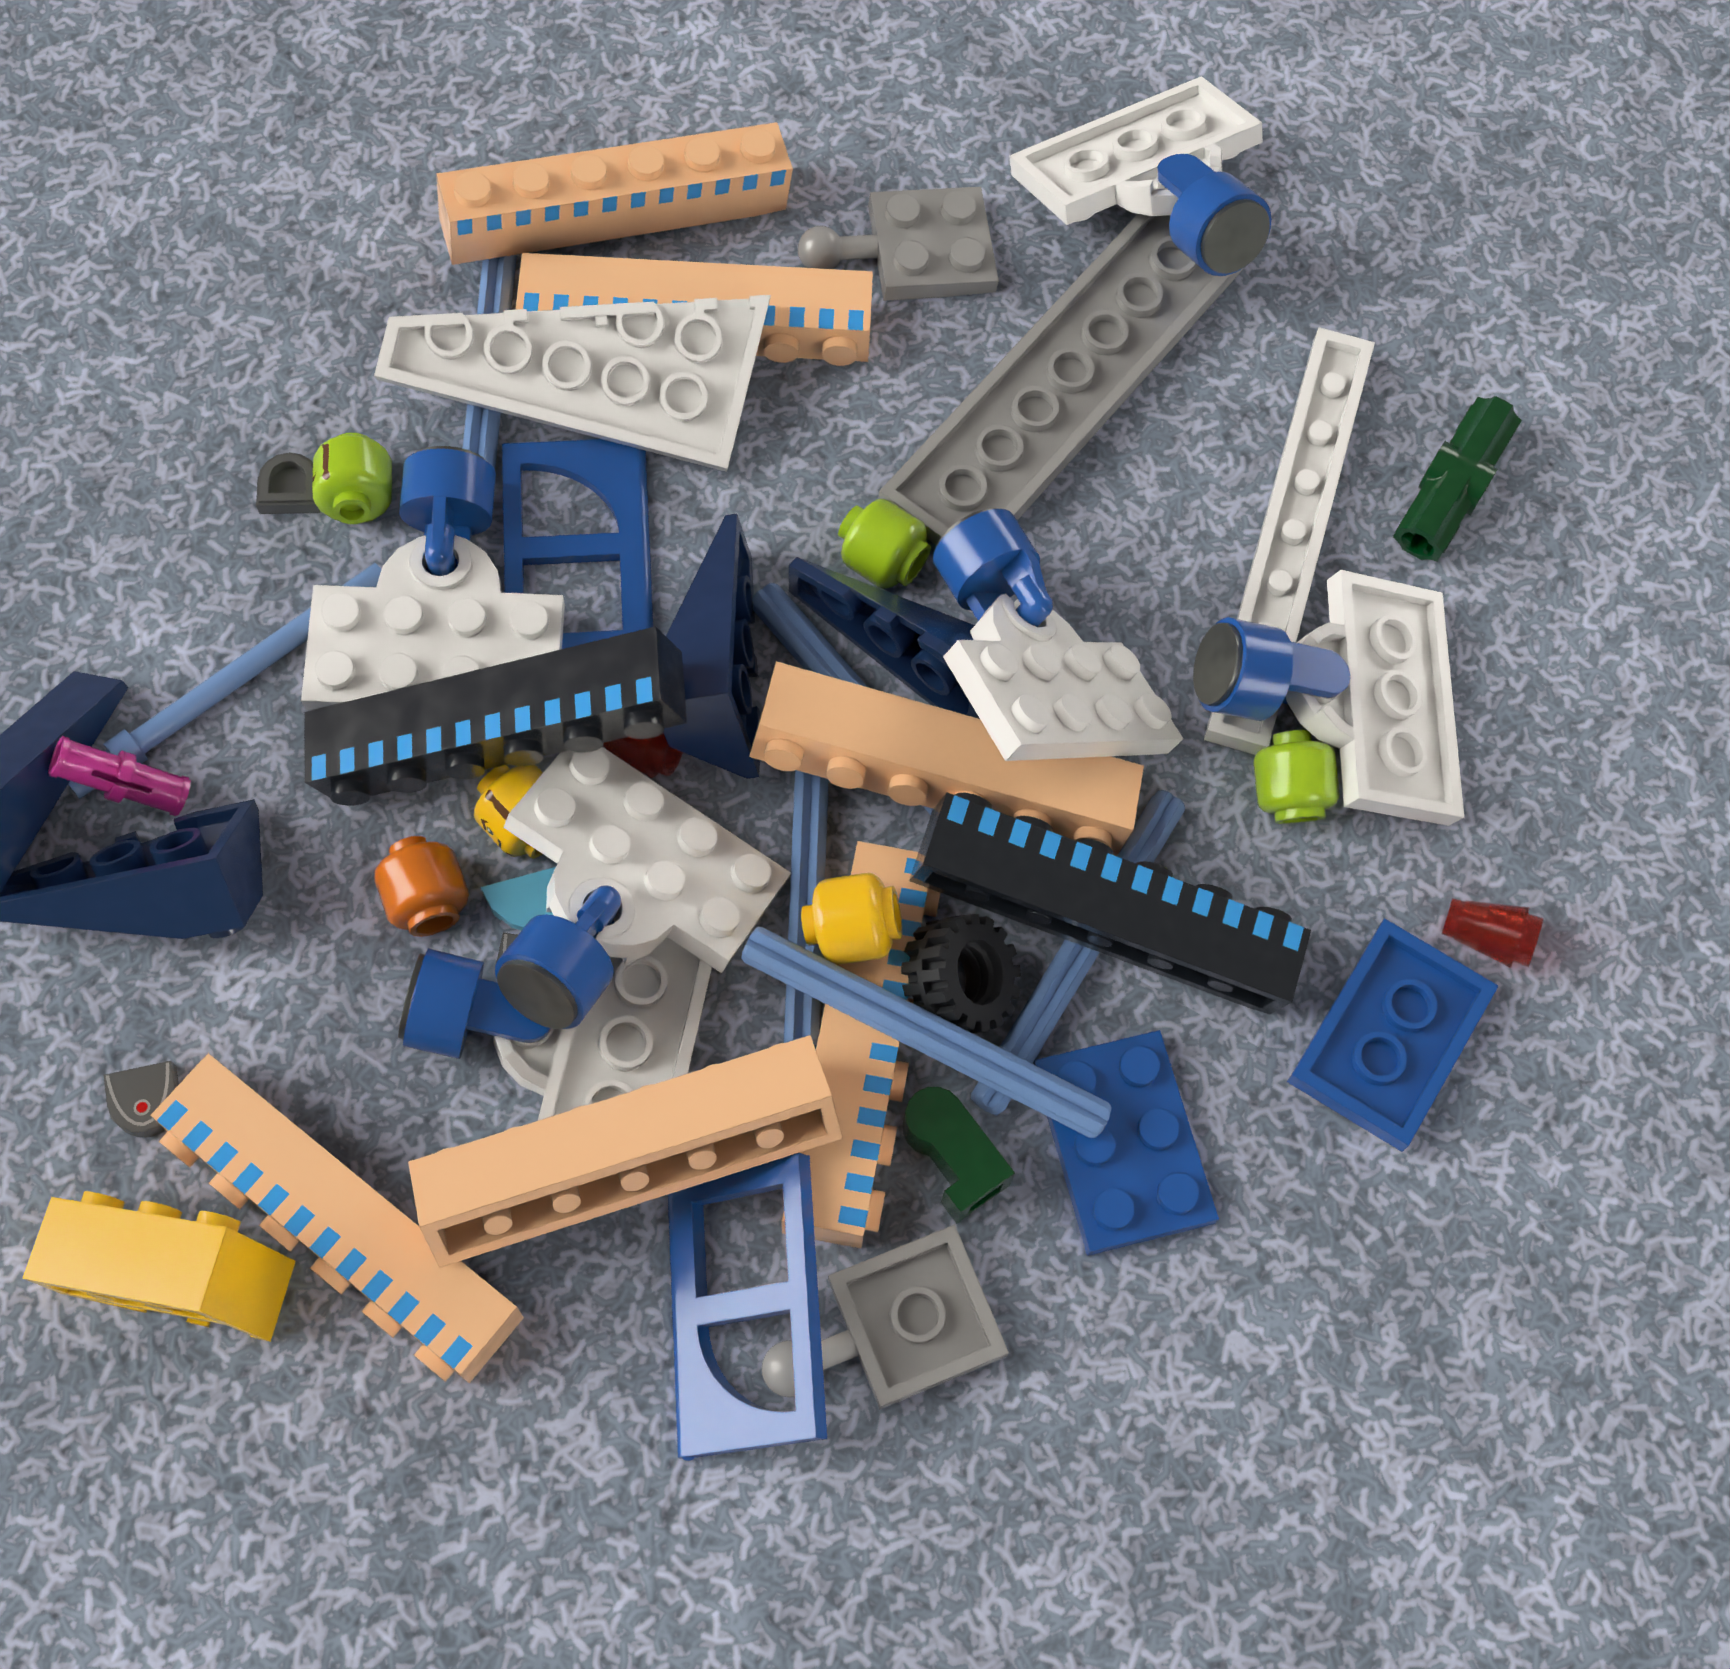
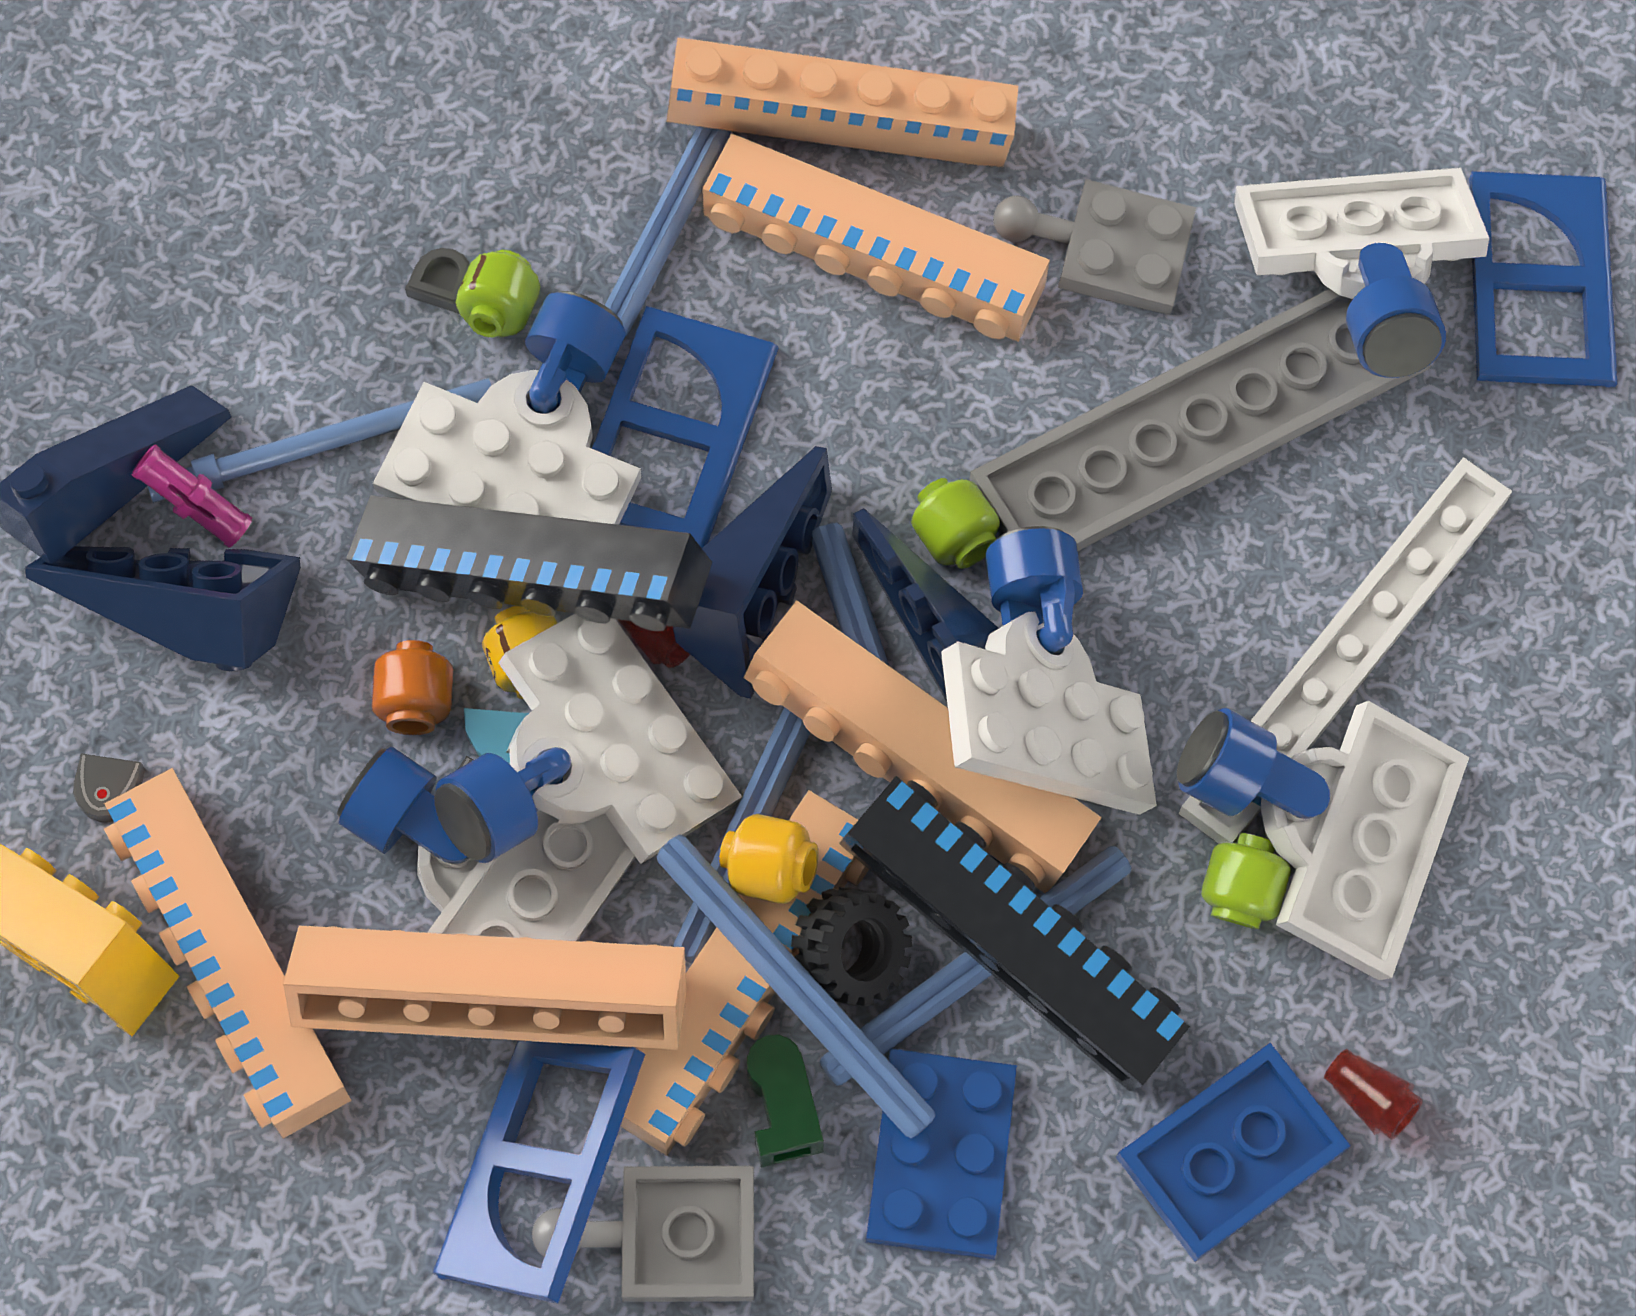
camera: 25 degrees right, 0 degrees up
(615, 372) = (777, 278): white wing -> none
(1317, 82) = (1581, 213): none -> blue window
(1457, 478) = (1535, 651): dark green piece -> none

